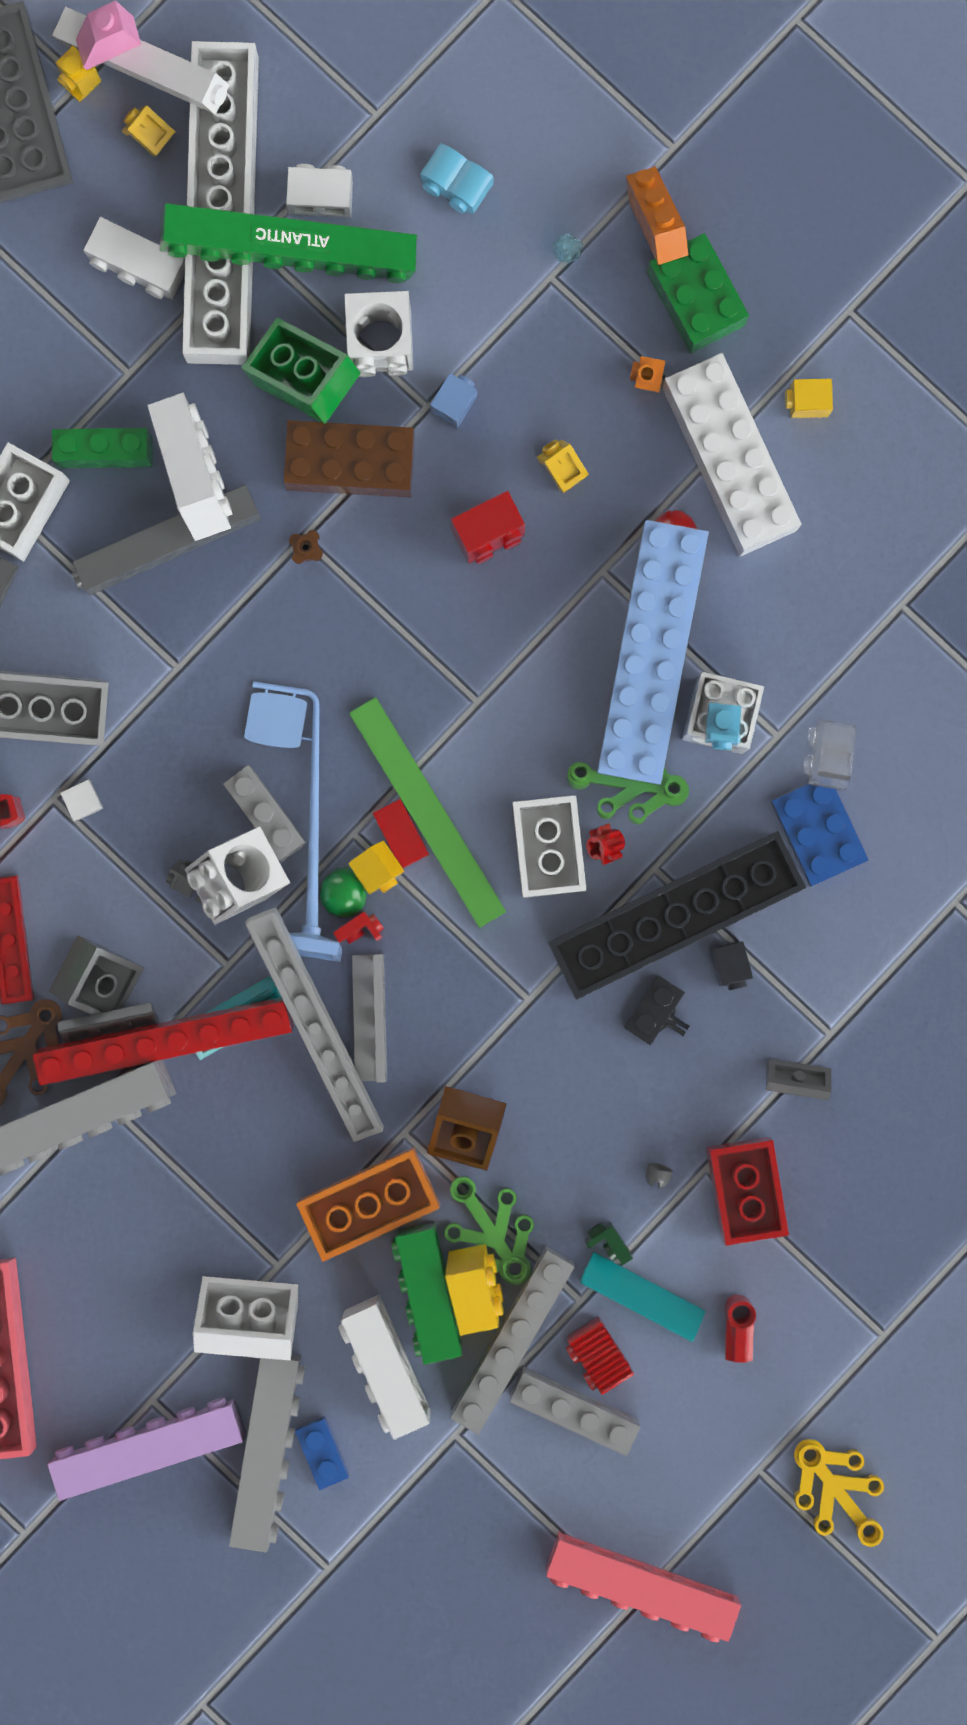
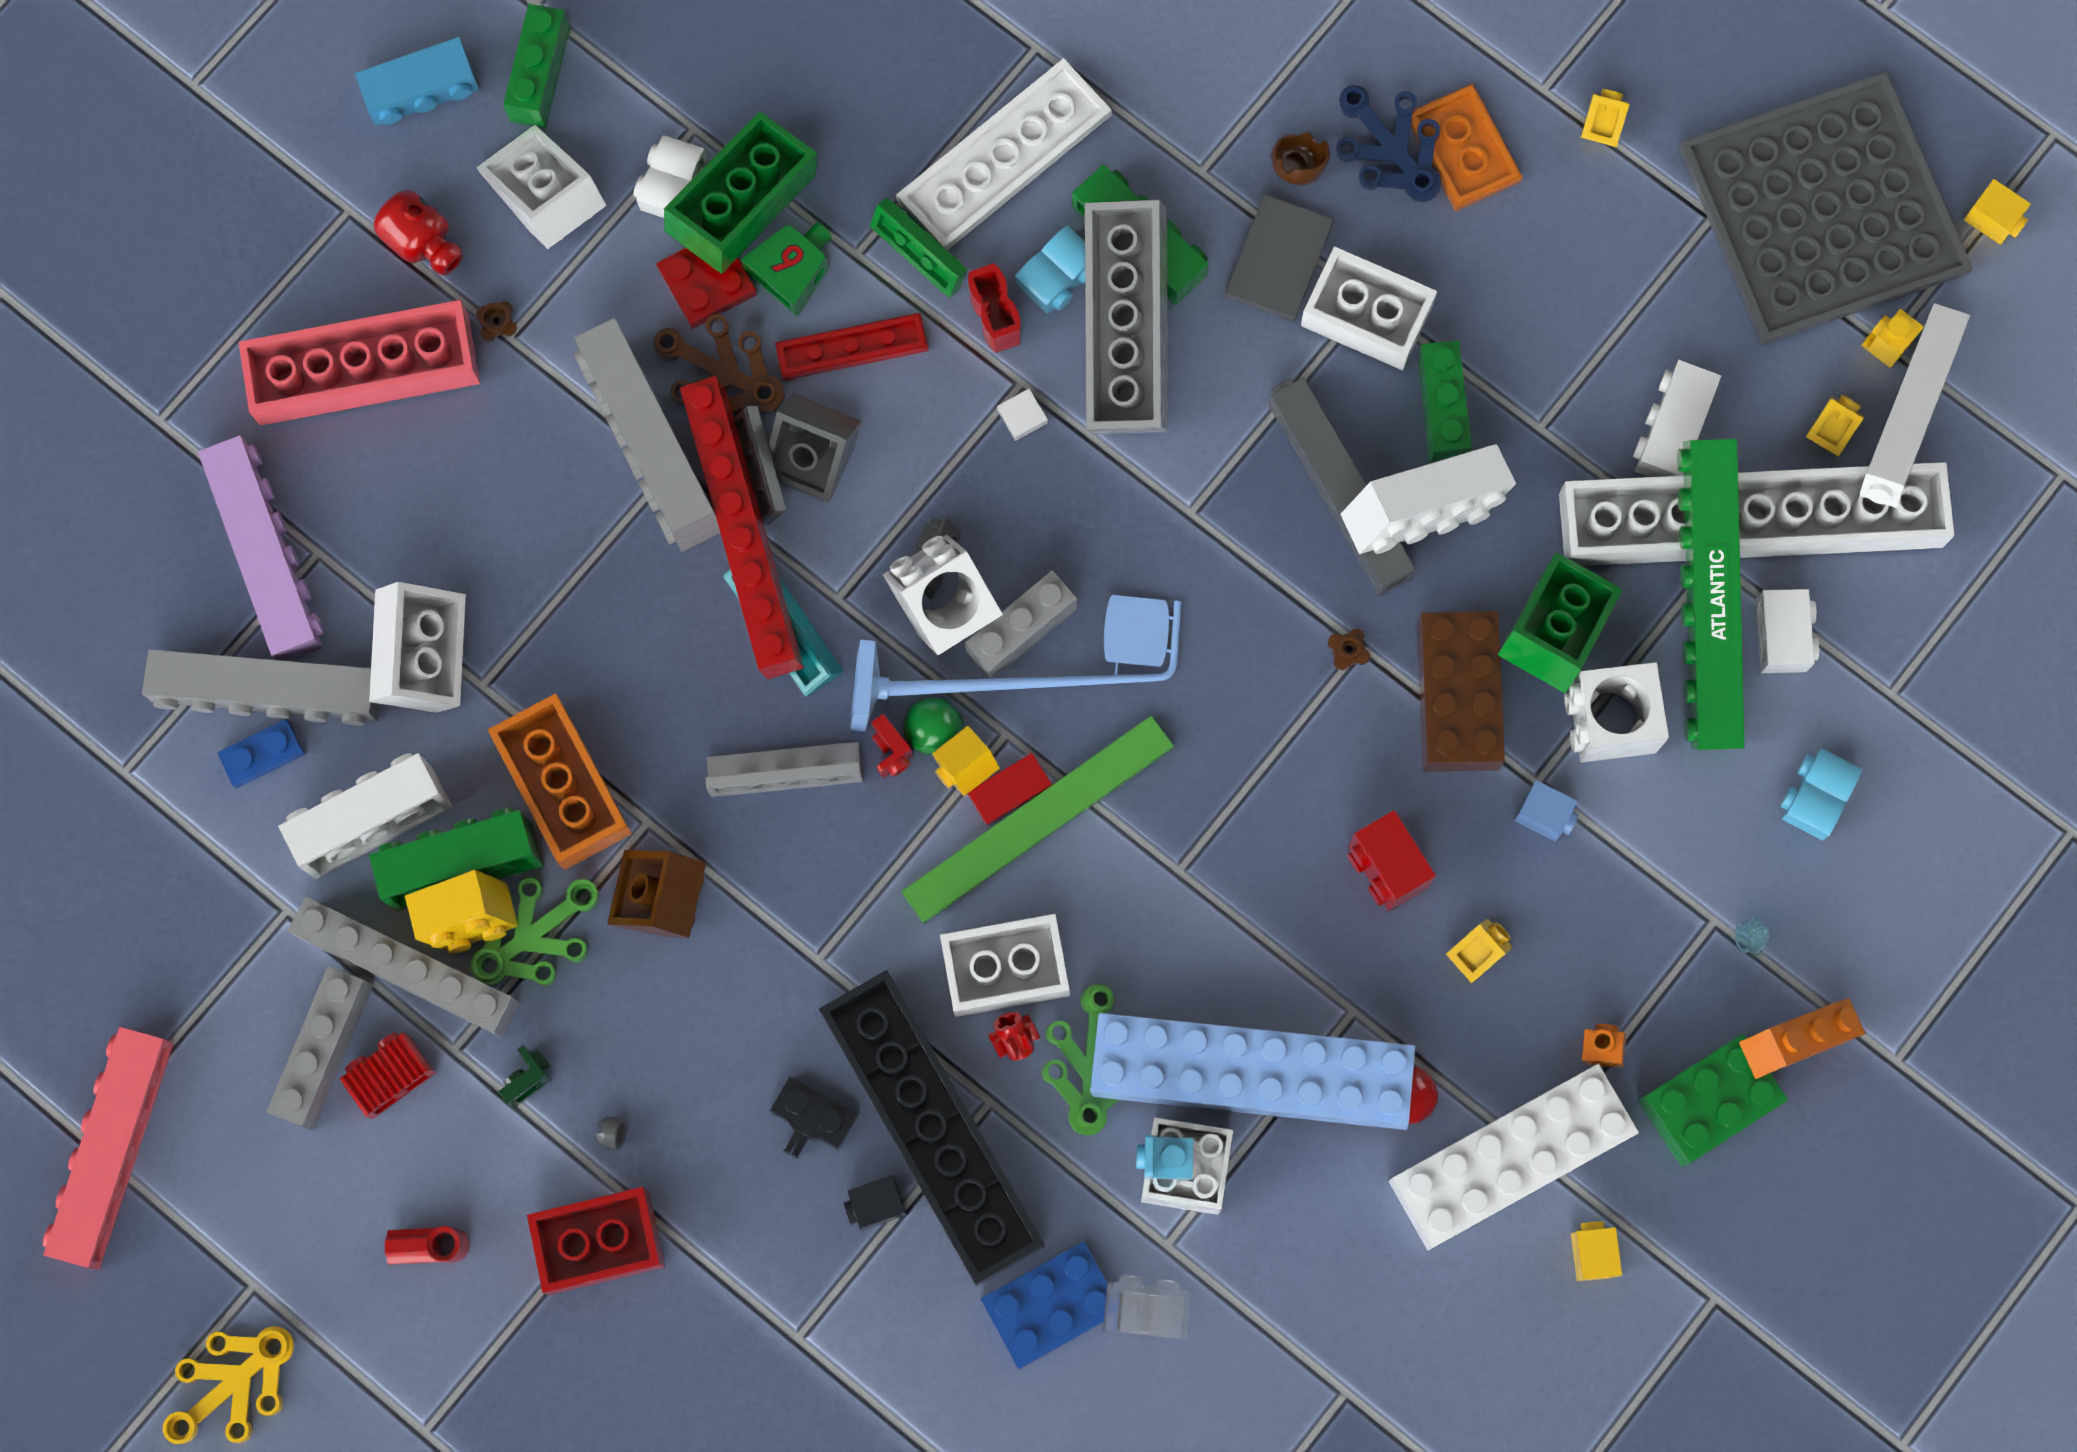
camera: 85 degrees right, 10 degrees down
(106, 34) = (1937, 361): bright pink slope -> none
(314, 1024) = (769, 697): light grey plate -> none
(642, 1296) = (461, 1124): teal slope -> none
(798, 1079) = (738, 1298): dark grey plate -> none

